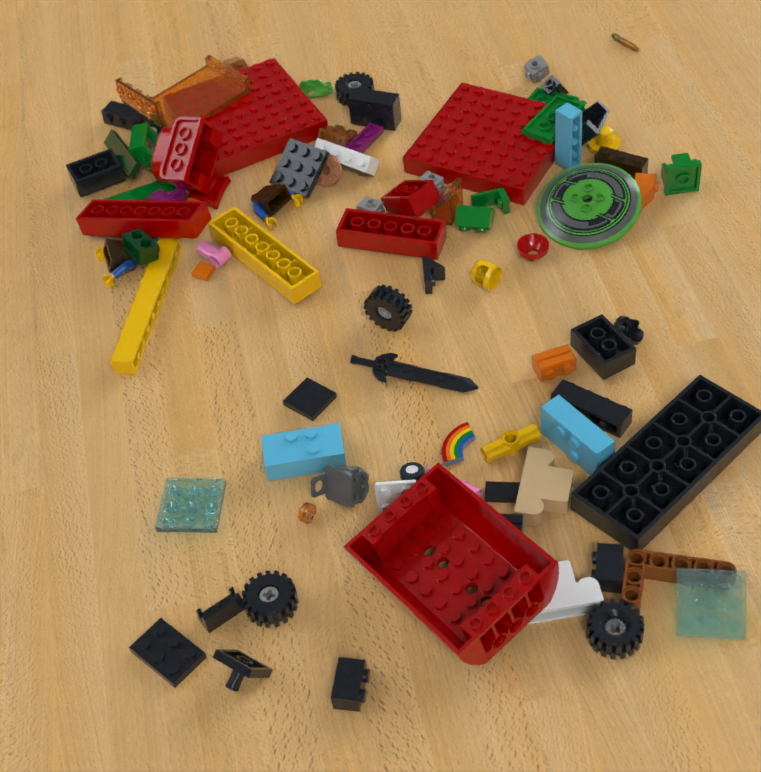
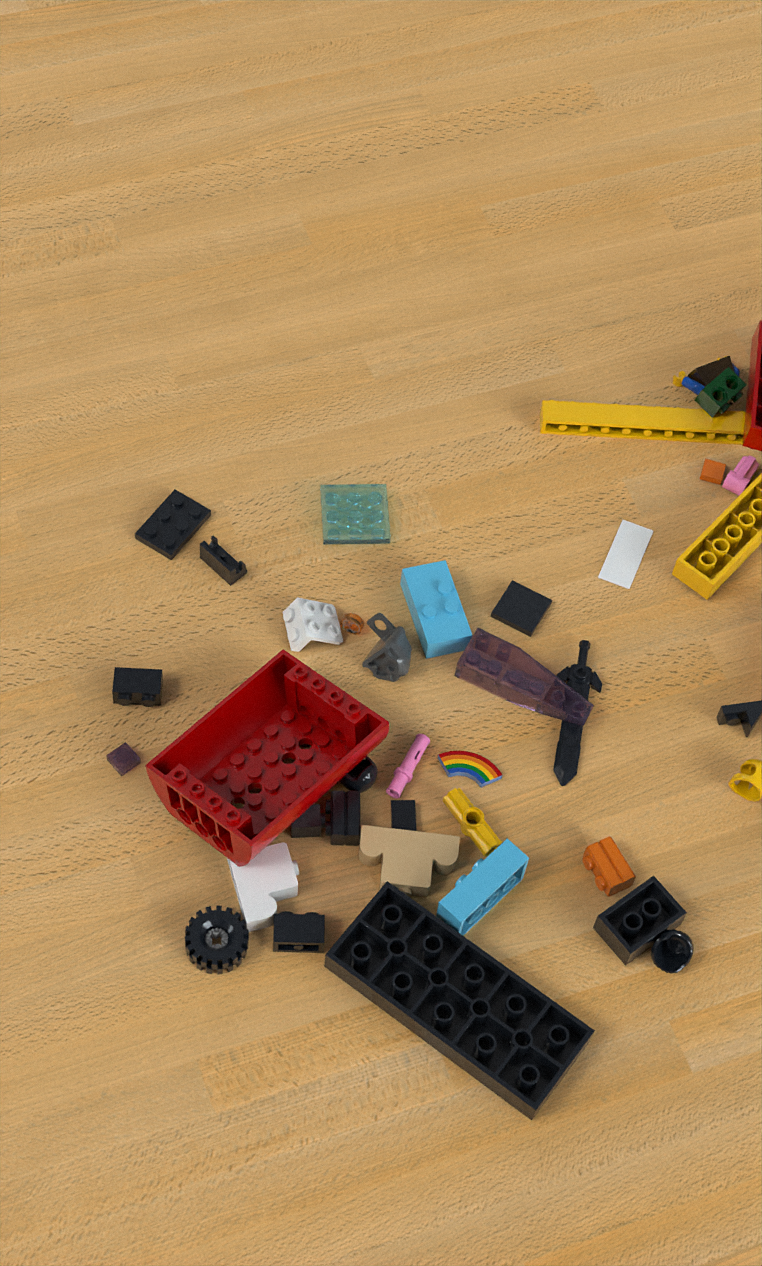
camera: 70 degrees right, 10 degrees up
(242, 667) = (152, 585): black tile -> none
(268, 331) = (625, 554): none -> white sticker
(278, 607) = (242, 615): black bush -> none
(302, 545) = (310, 621): none -> white bracket
(380, 402) = (519, 679): none -> wedge
(388, 308) = (663, 667): black bush -> none
(389, 491) = (401, 718): white plate -> none
(423, 702) = (123, 759): none -> plate
(600, 410) = (537, 912): black brick -> none
(668, 564) = (299, 997): dark orange beam -> none
(711, 603) = (252, 1039): clear light blue plate -> none

